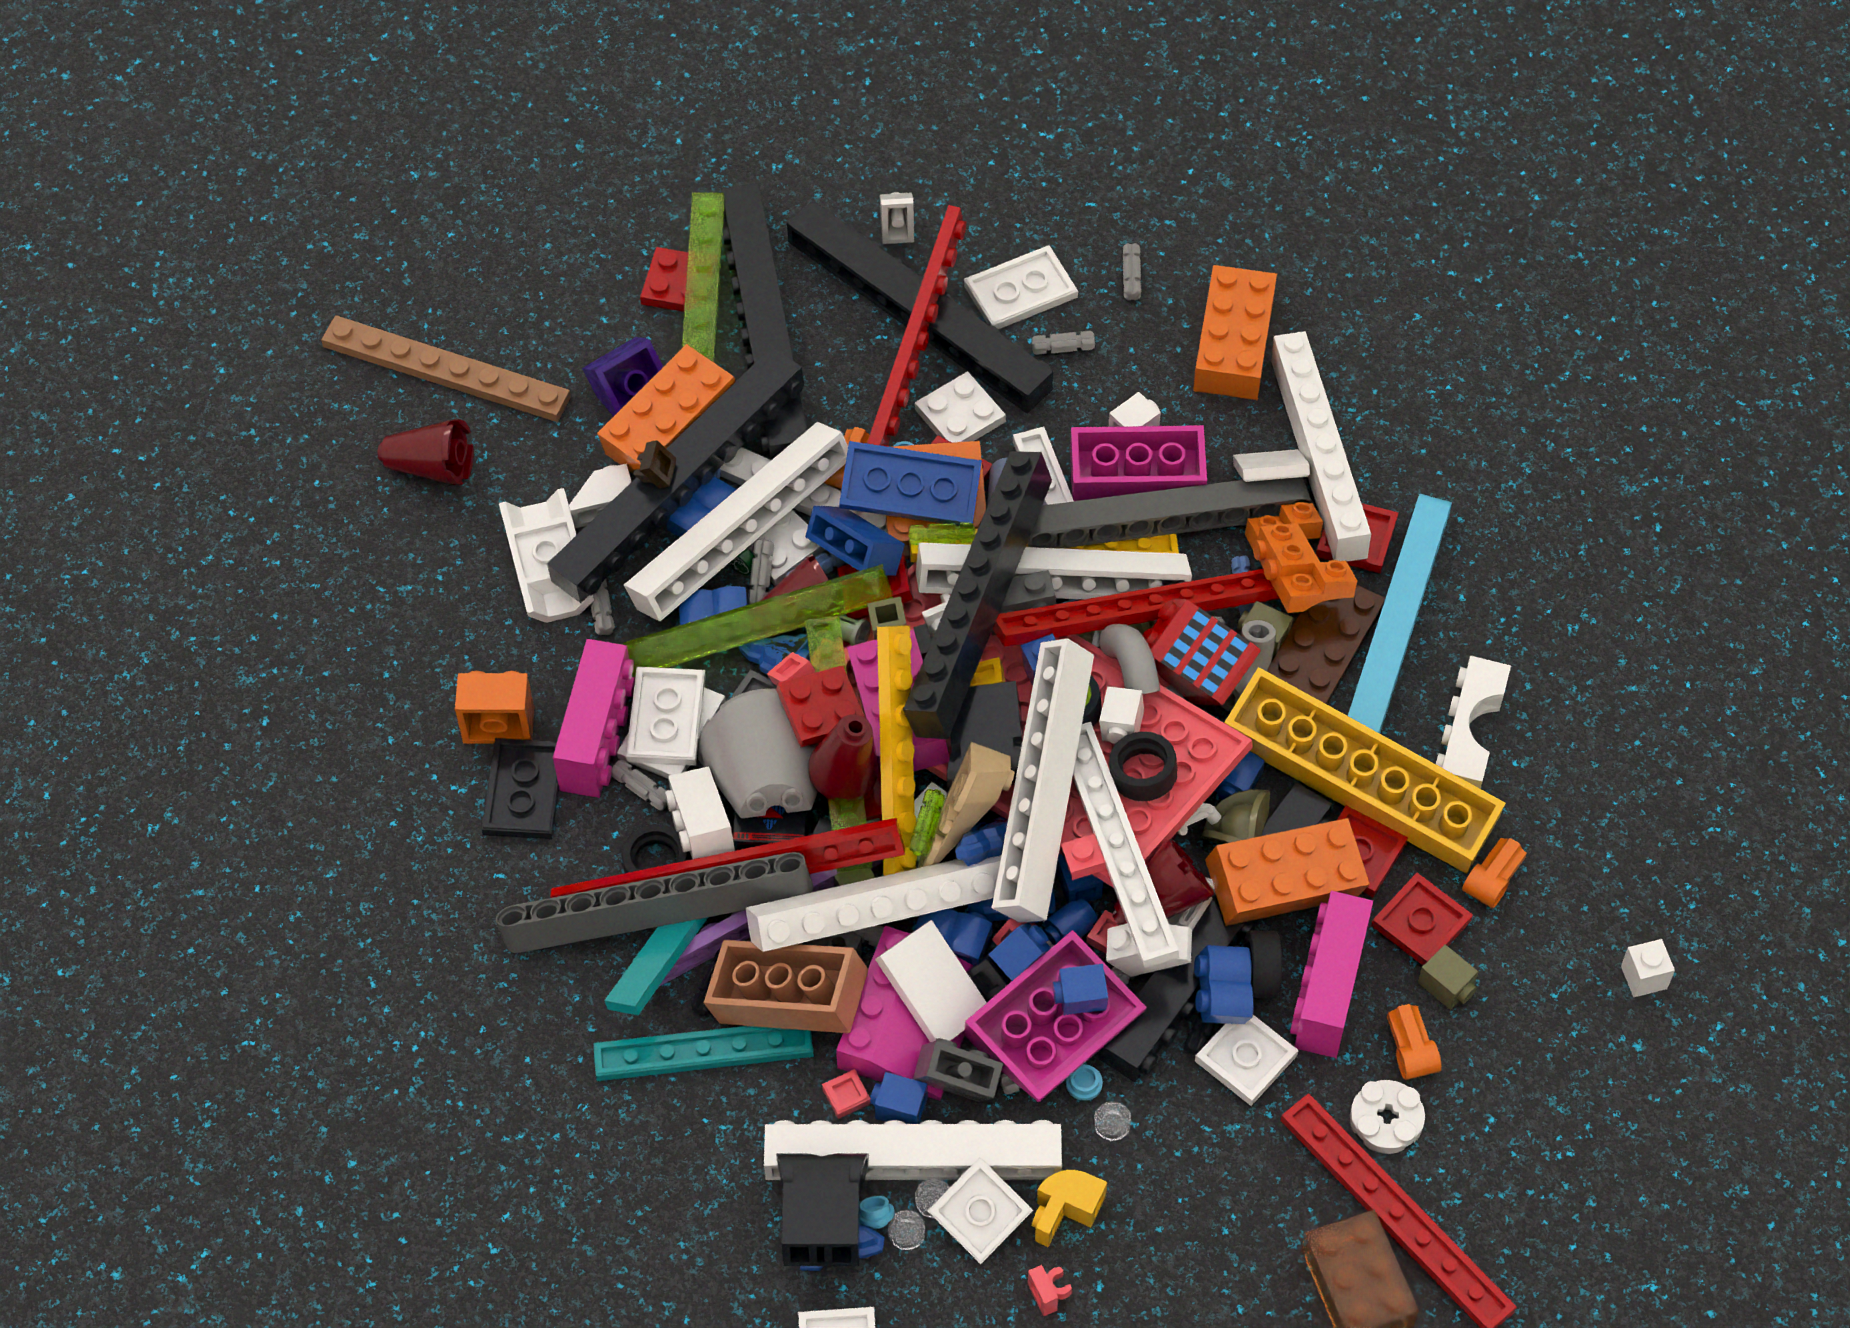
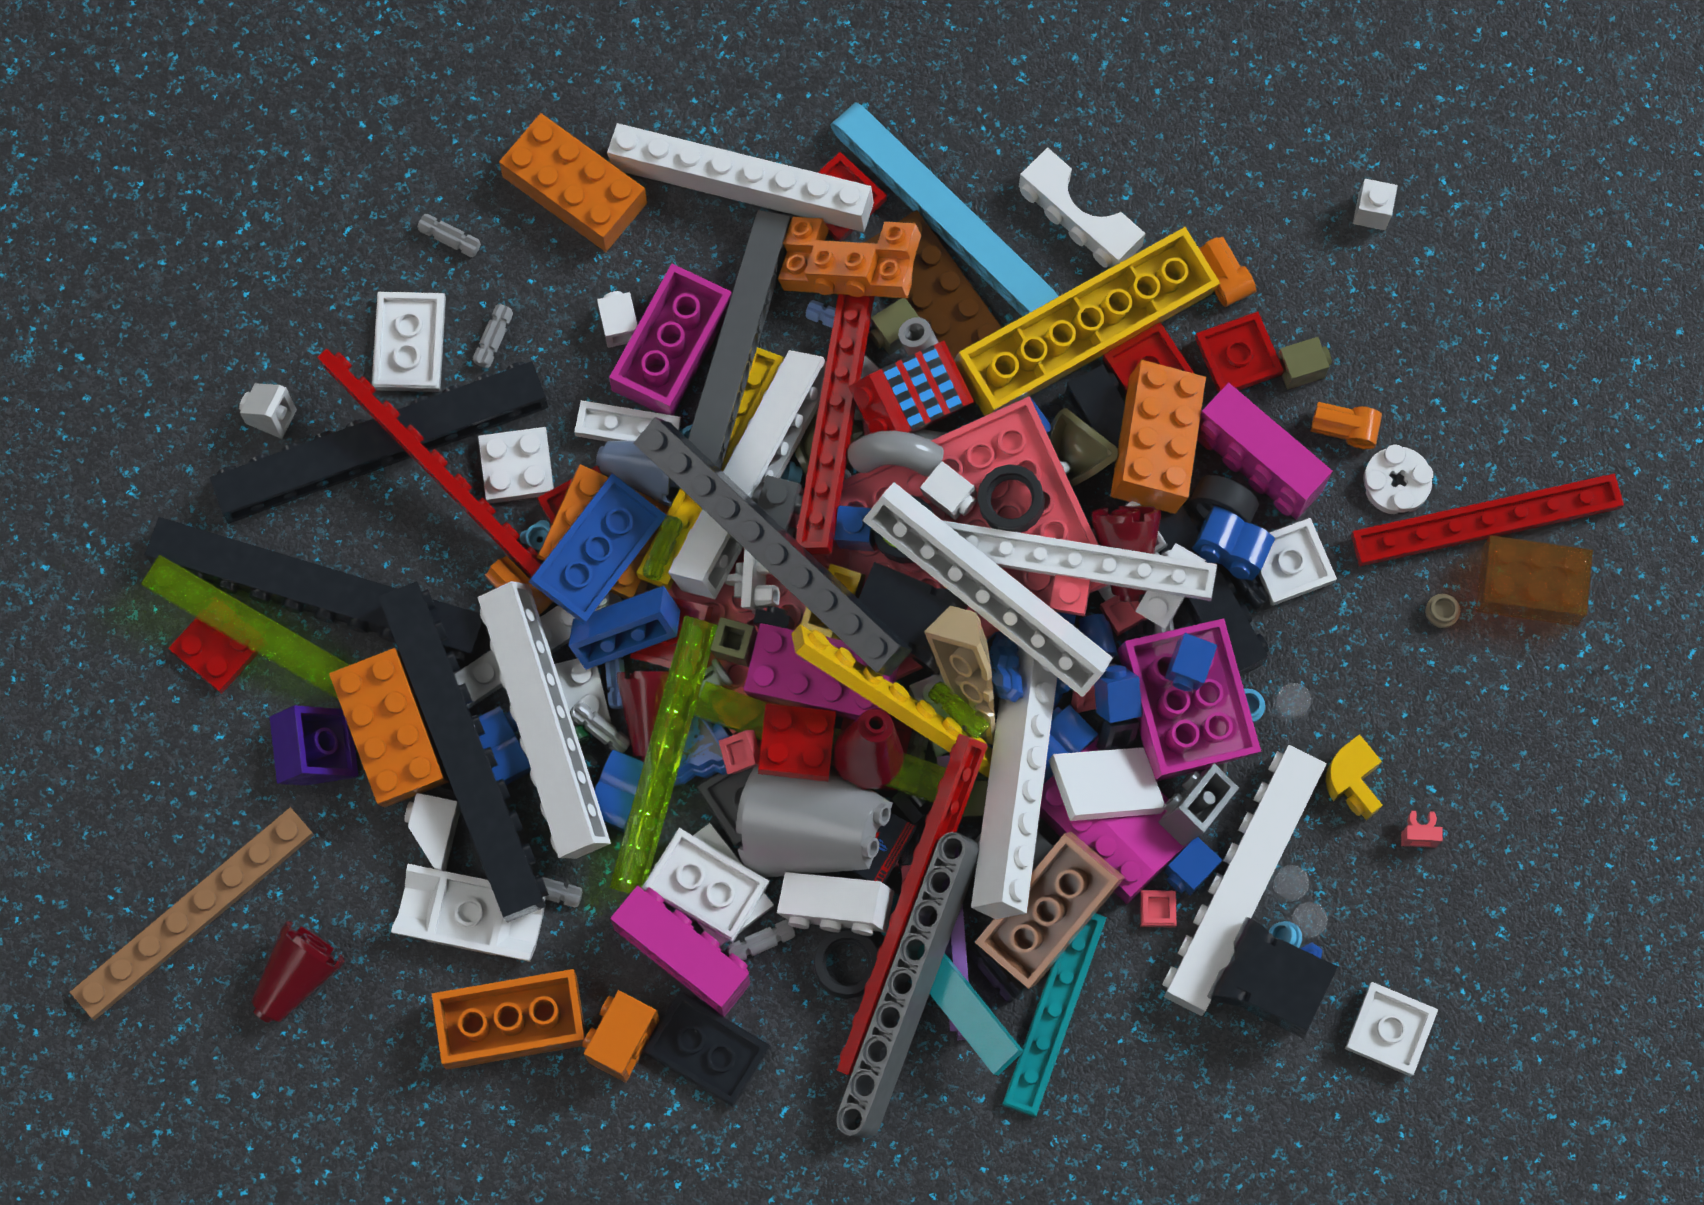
camera: 65 degrees left, 15 degrees up
(467, 617) = (509, 1019): none -> orange brick
(656, 465) = (460, 765): dark brown tile -> none
(980, 1210) = (1329, 850): white tile -> none
(1271, 465) = (735, 229): white tile -> none
(1281, 1214) = (1442, 610): none -> dark tan plate

